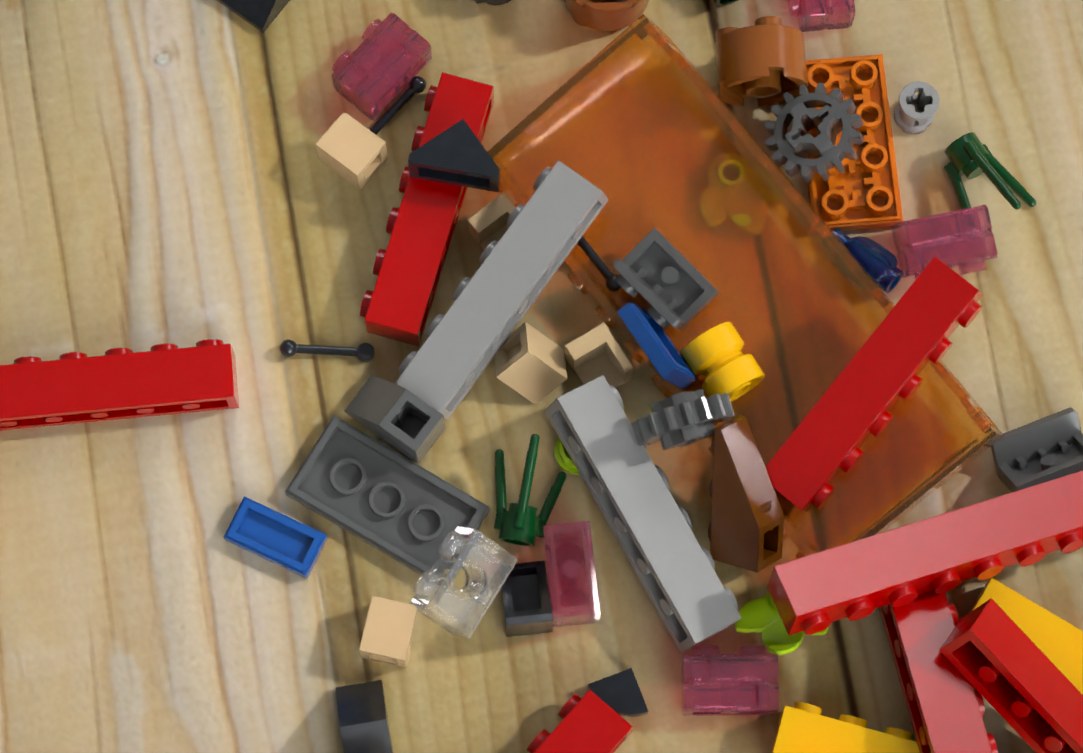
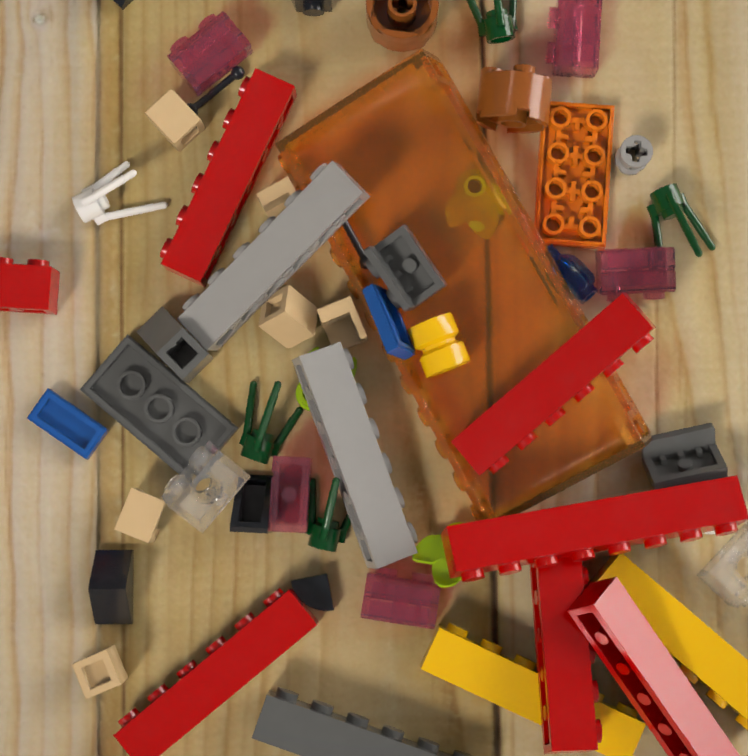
camera: 15 degrees right, 10 degrees up
(265, 262) = (93, 199): none -> white plant
(364, 352) = (160, 285): black hinge -> none
(455, 159) = (251, 143): black slope -> none
(621, 617) = (325, 532): none -> dark green plant
(682, 419) = (396, 391): dark grey gear -> none
(745, 508) = (435, 463): reddish brown slope -> none
(798, 143) = (533, 170): dark grey gear -> none

